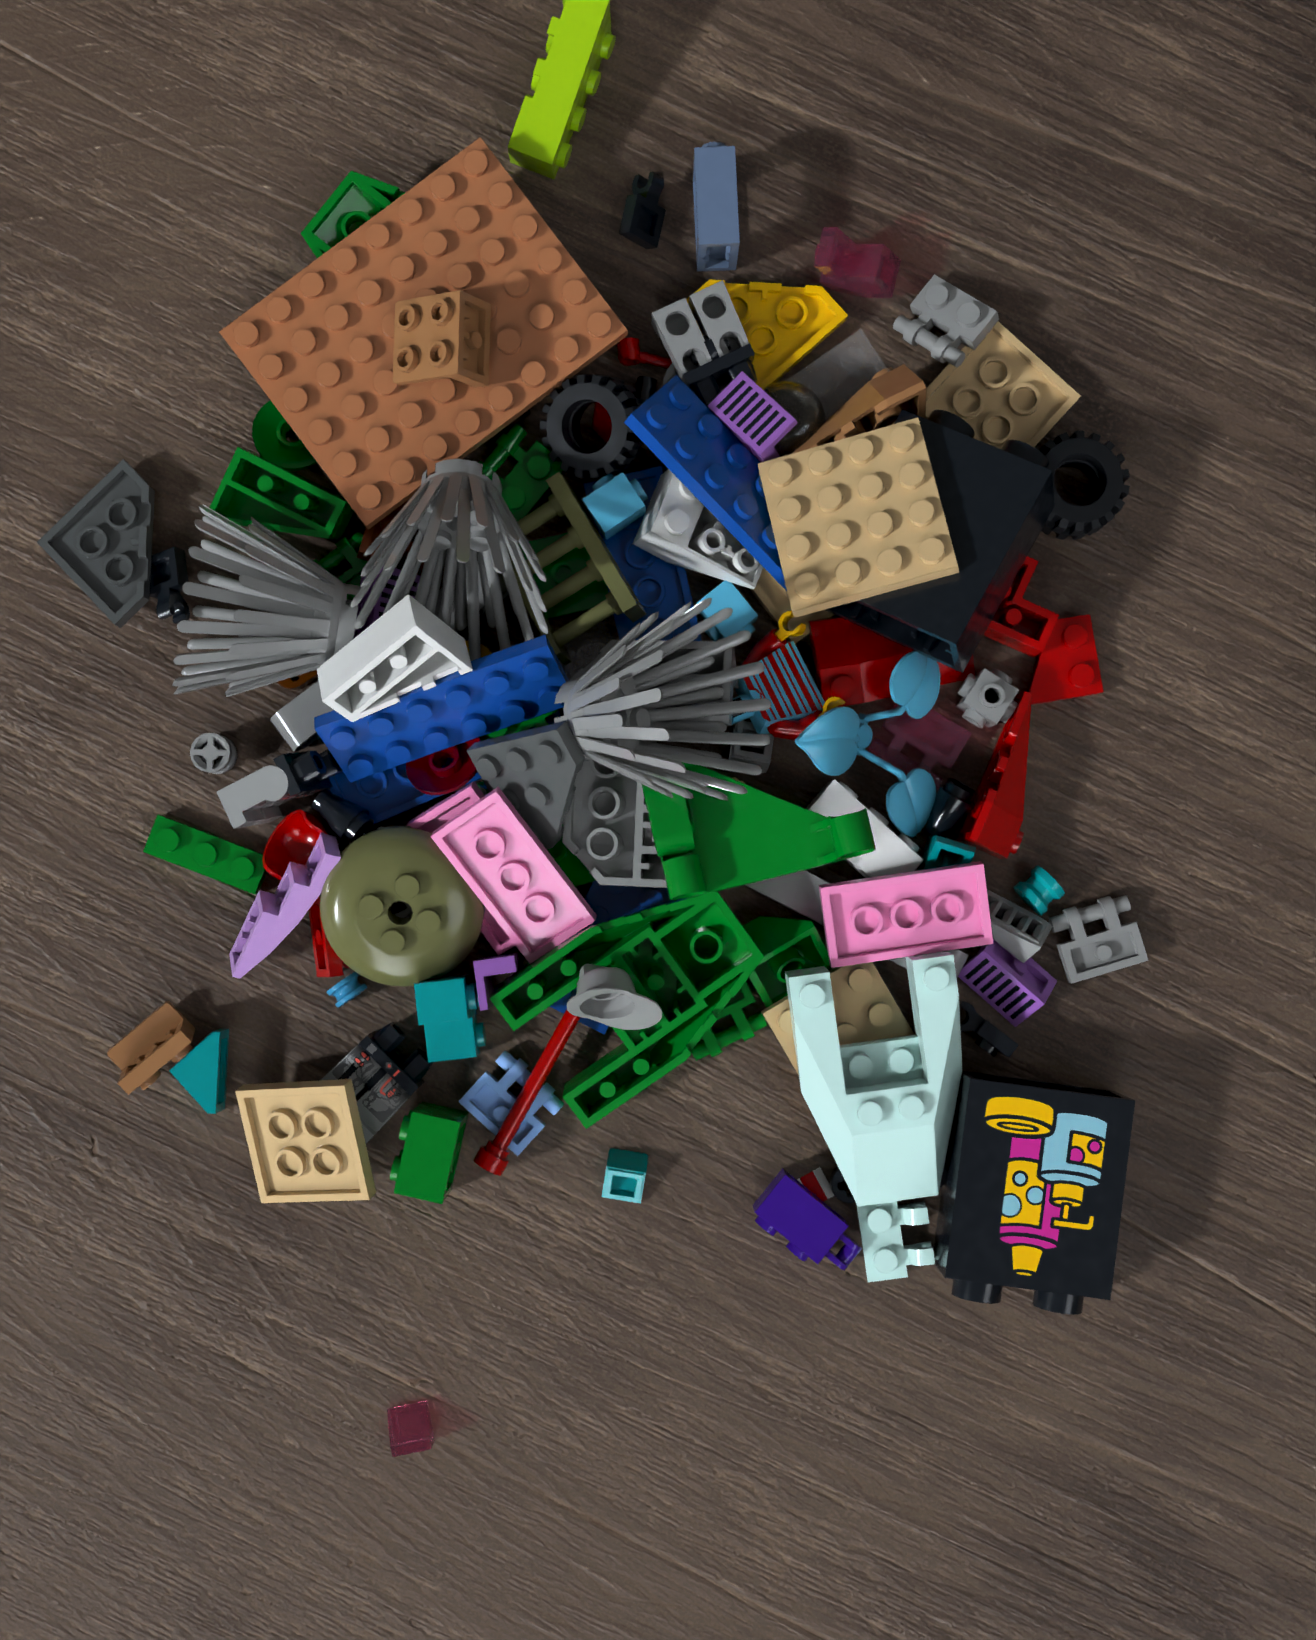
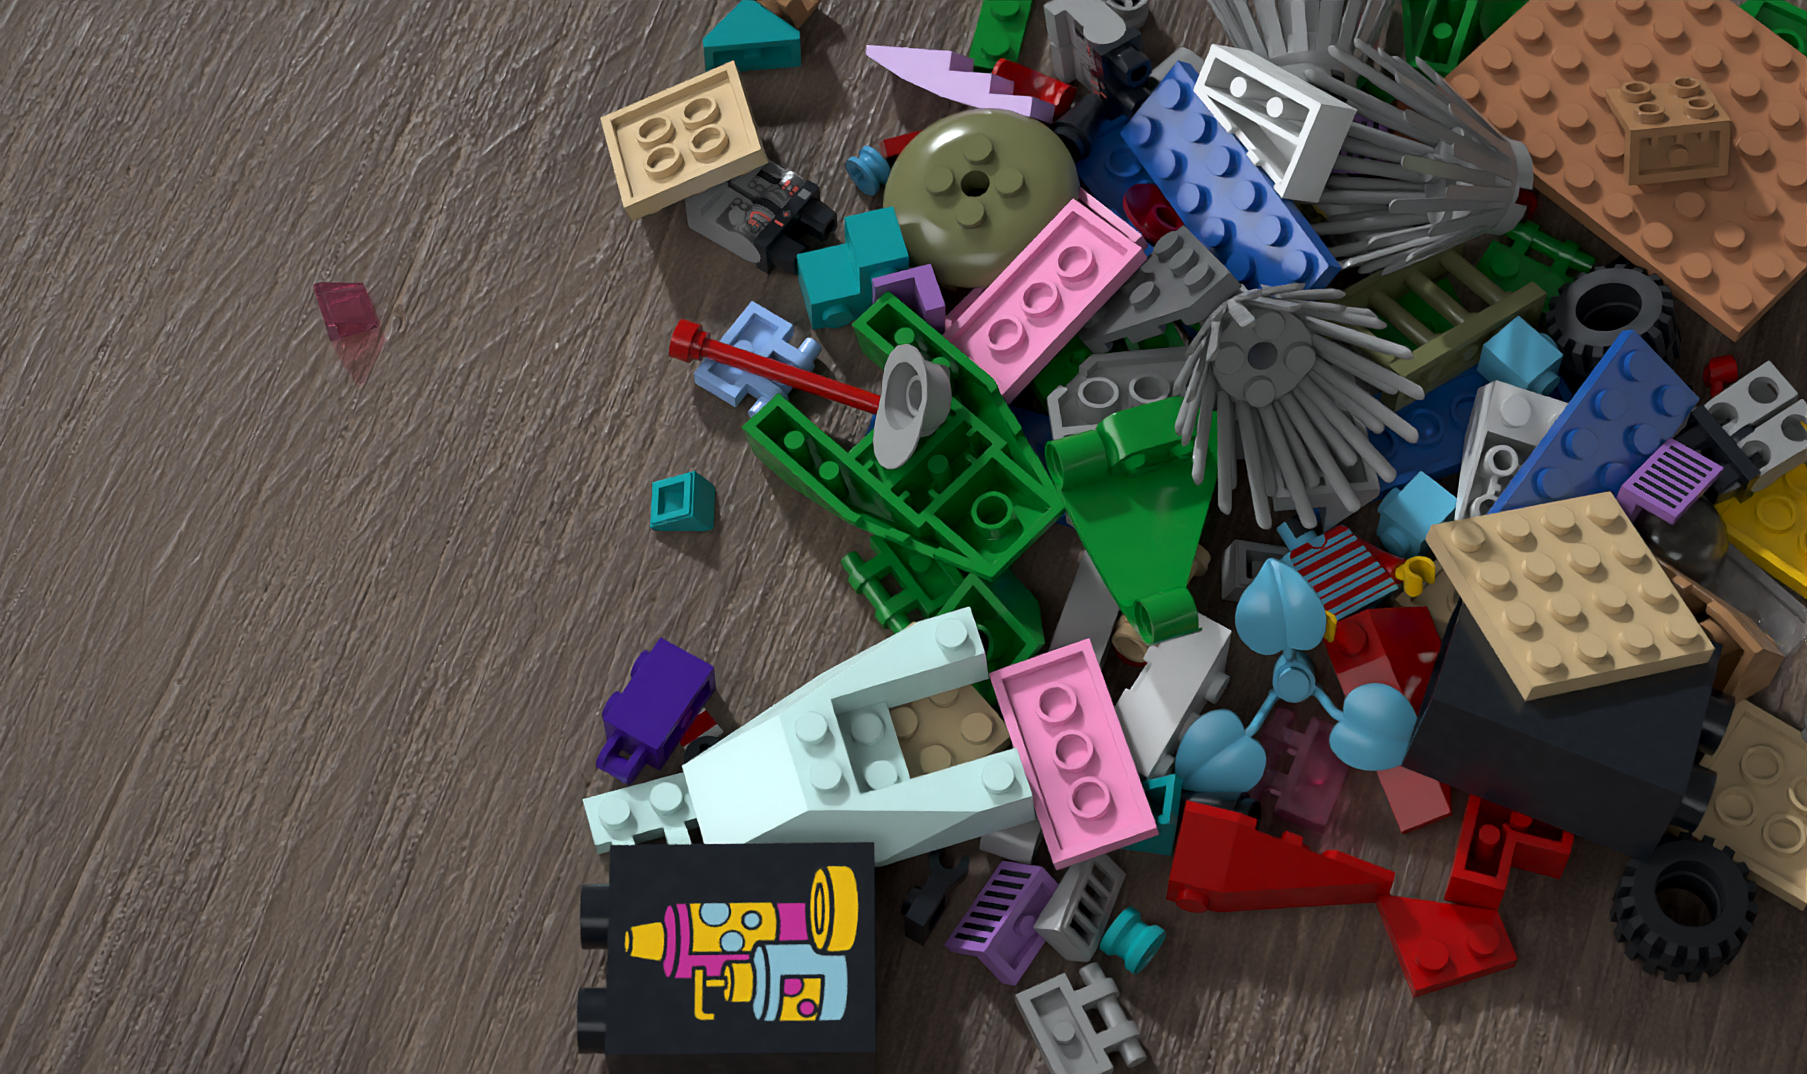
camera: 85 degrees right, 25 degrees down
(430, 1152) = (688, 270): green brick -> none
(973, 700) = (1377, 831): light grey brick -> none

